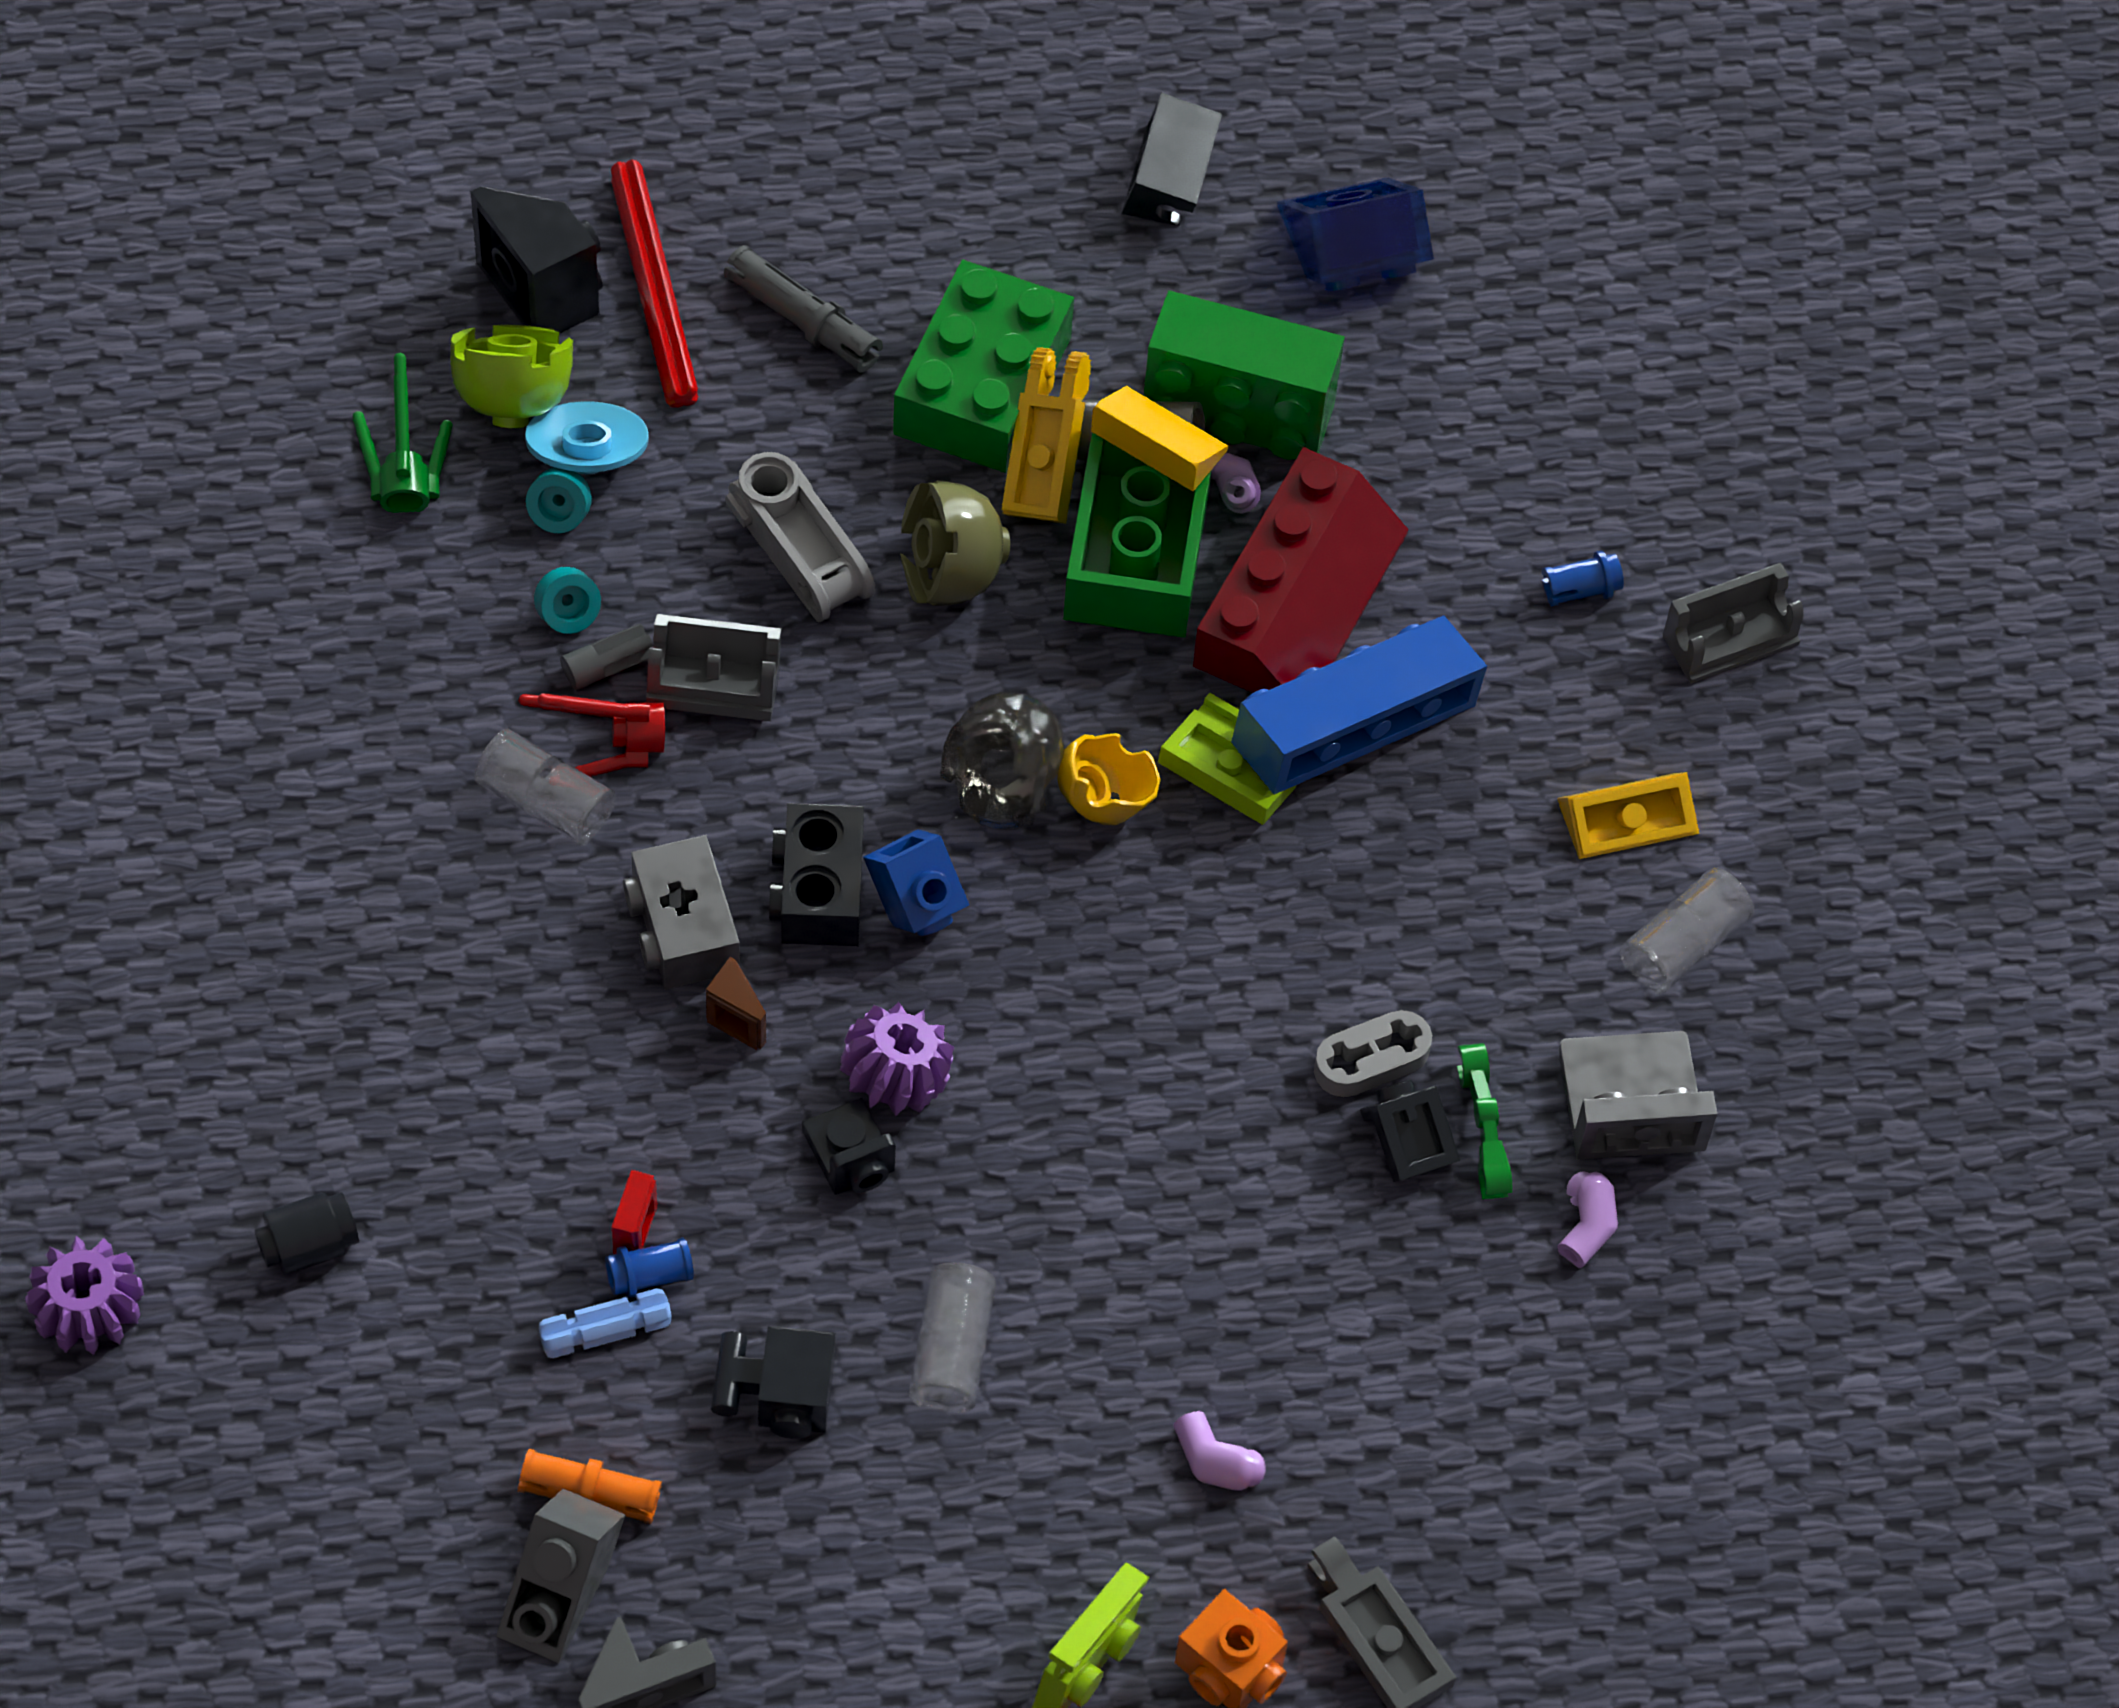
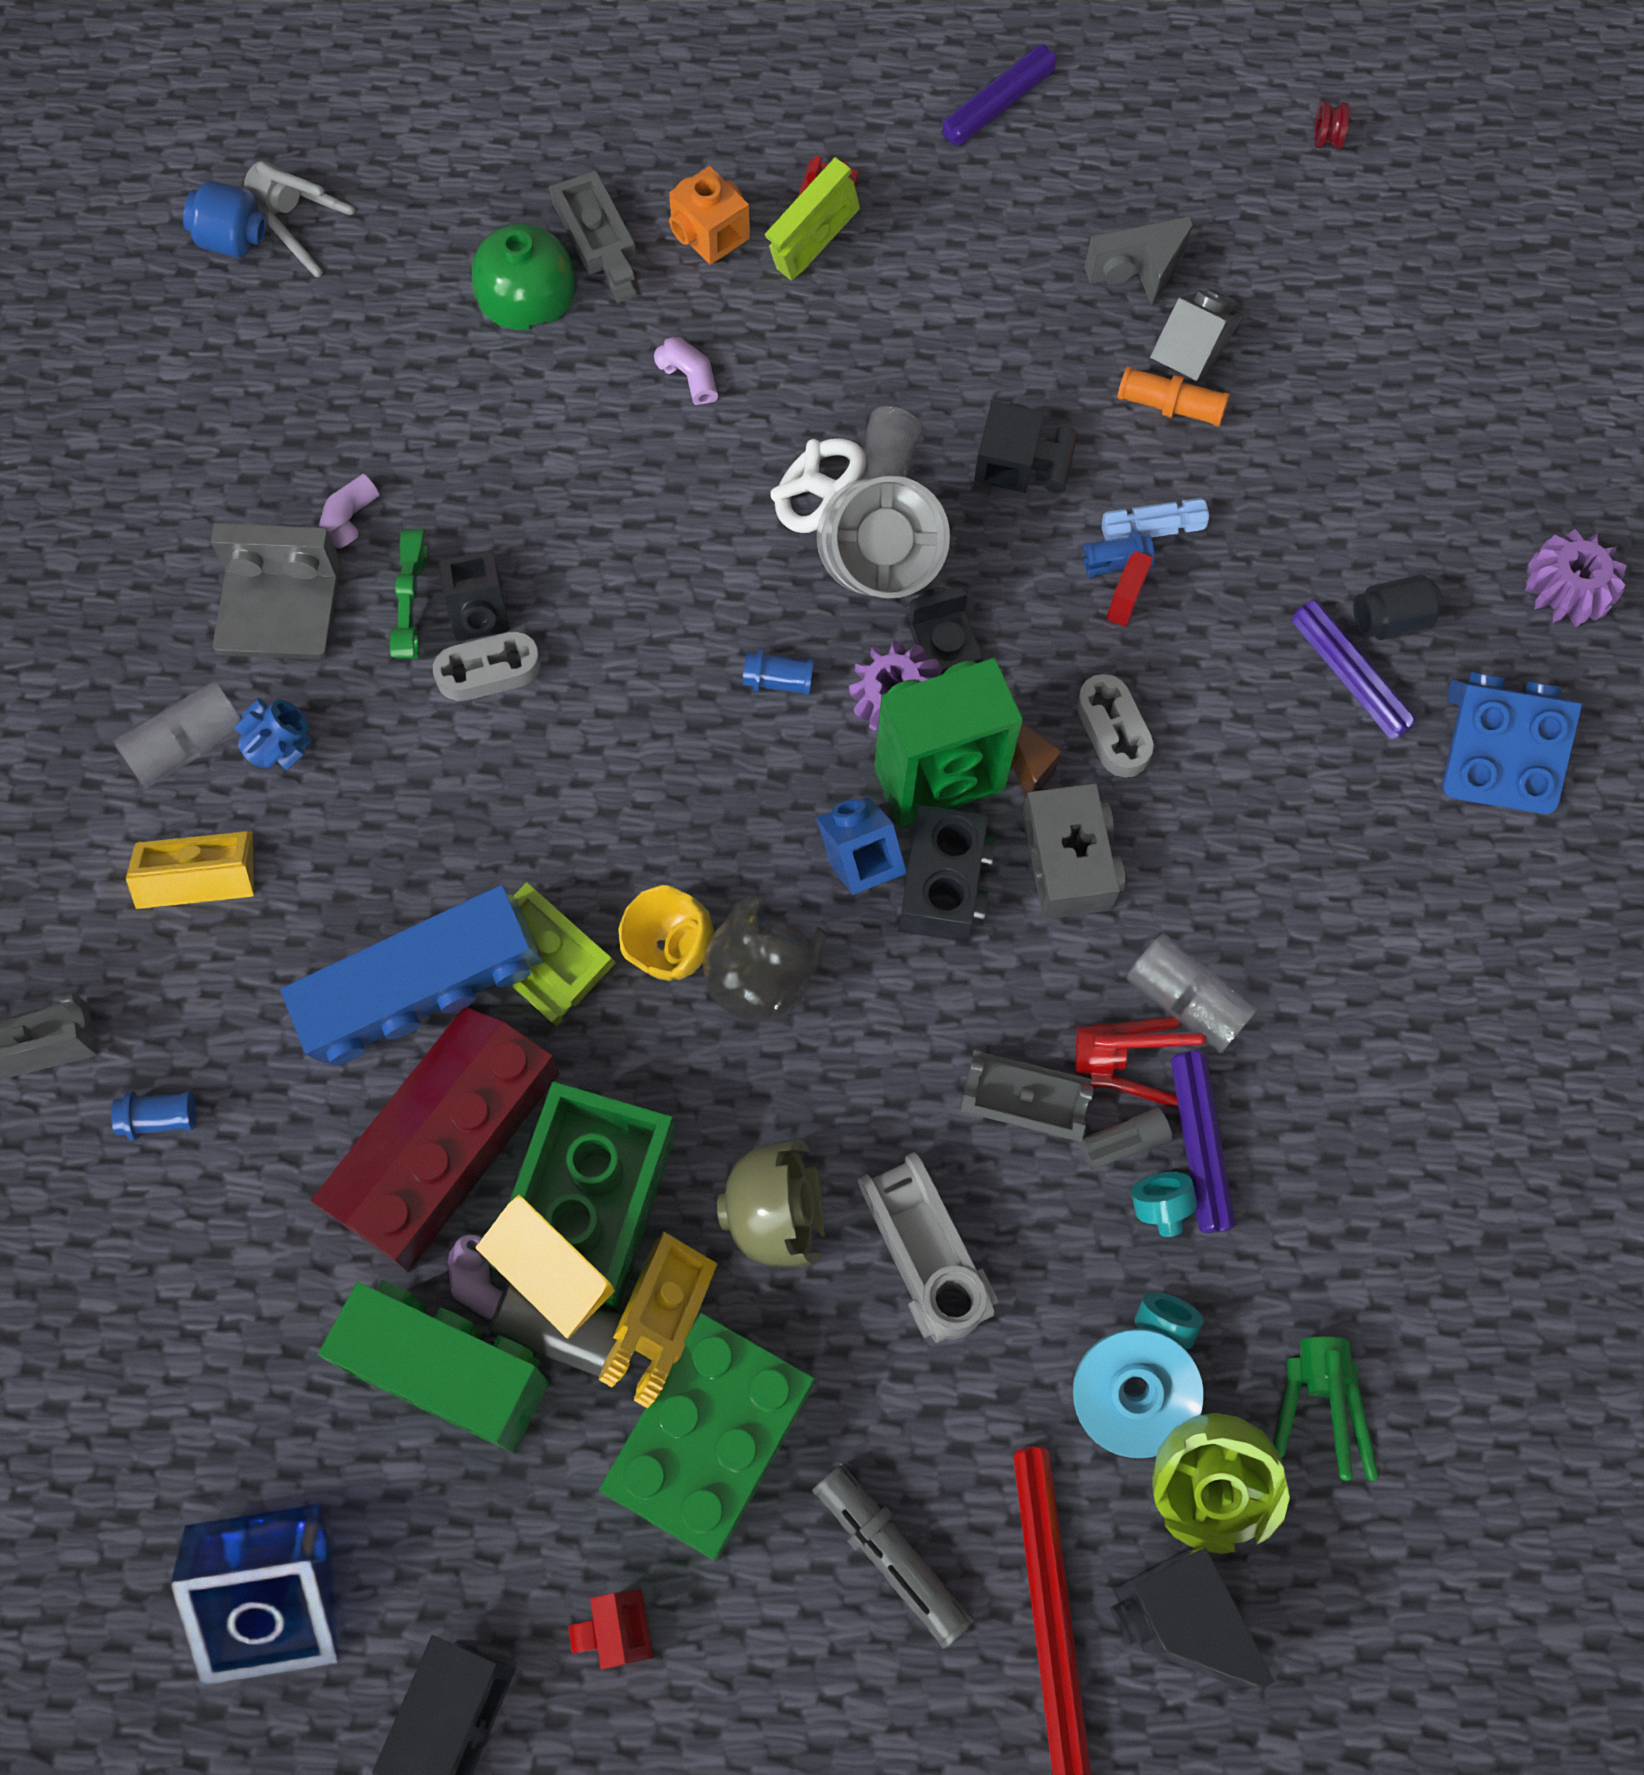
camera: 170 degrees left, 10 degrees up
(180, 1100) = (1509, 743): none -> blue bracket
(360, 1167) = (1354, 669): none -> dark purple axle
(528, 655) = (1203, 1142): none -> dark purple axle
(653, 1061) = (1125, 720): none -> light grey beam
(837, 949) = (946, 739): none -> green brick
(939, 1196) = (883, 536): none -> light grey wheel
(1028, 1303) = (805, 477): none -> white piece
(1038, 1080) = (777, 673): none -> blue pin
(1039, 230) = (616, 1630): none -> red tile
(1458, 1552) = (522, 276): none -> green cylinder
(1583, 935) = (273, 734): none -> blue gear
(1818, 1635) = (280, 192): none -> light grey plant
(1864, 1571) = (224, 219): none -> blue head

